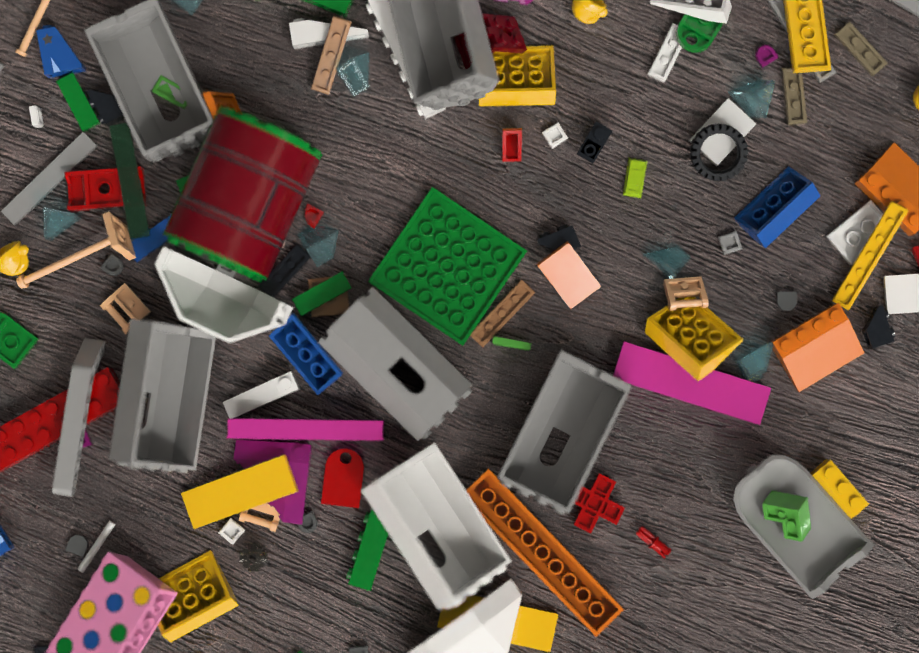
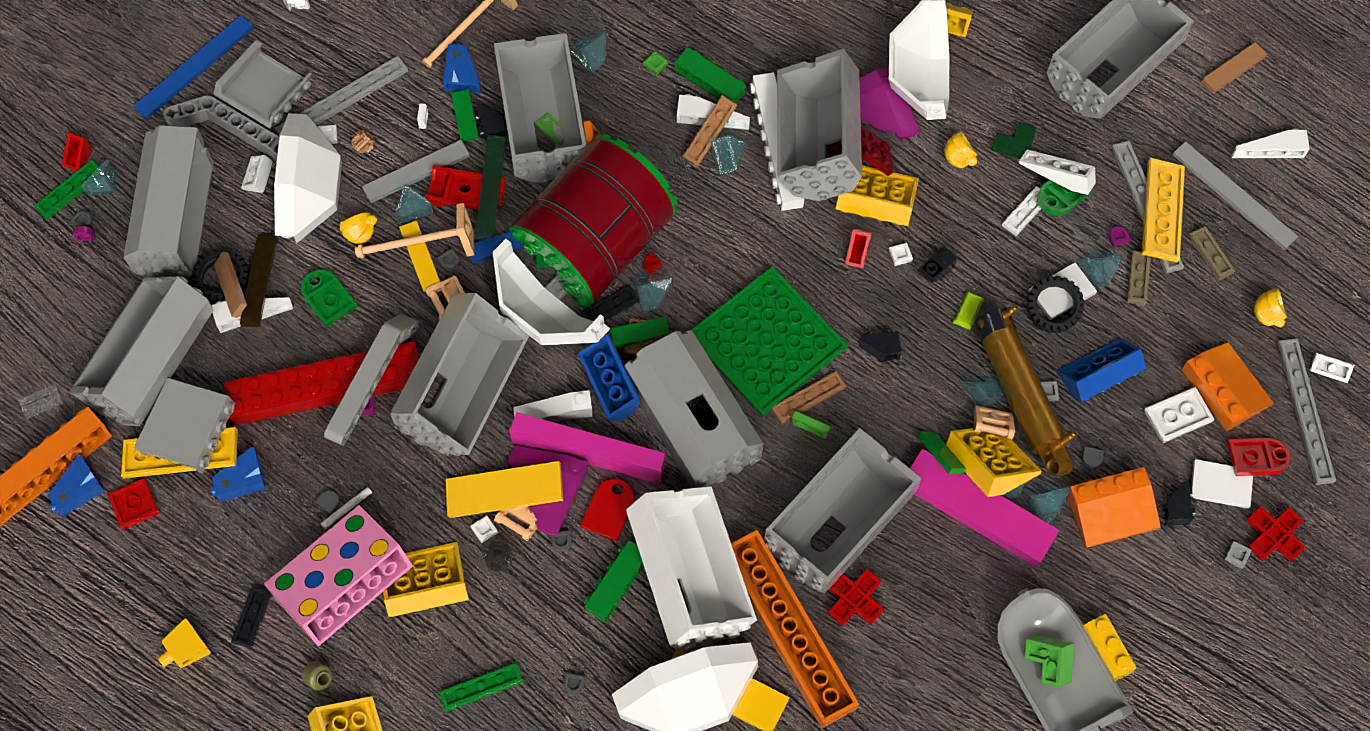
camera: 10 degrees right, 20 degrees down
(83, 270) = (420, 256): none -> yellow tile
(568, 275) = (883, 376): tile -> none
(643, 340) = (941, 452): none -> green tile
(653, 542) = (905, 651): red axle -> none
(708, 253) = (1024, 389): none -> pearl gold piece
(870, 255) = (1185, 432): yellow tile -> none

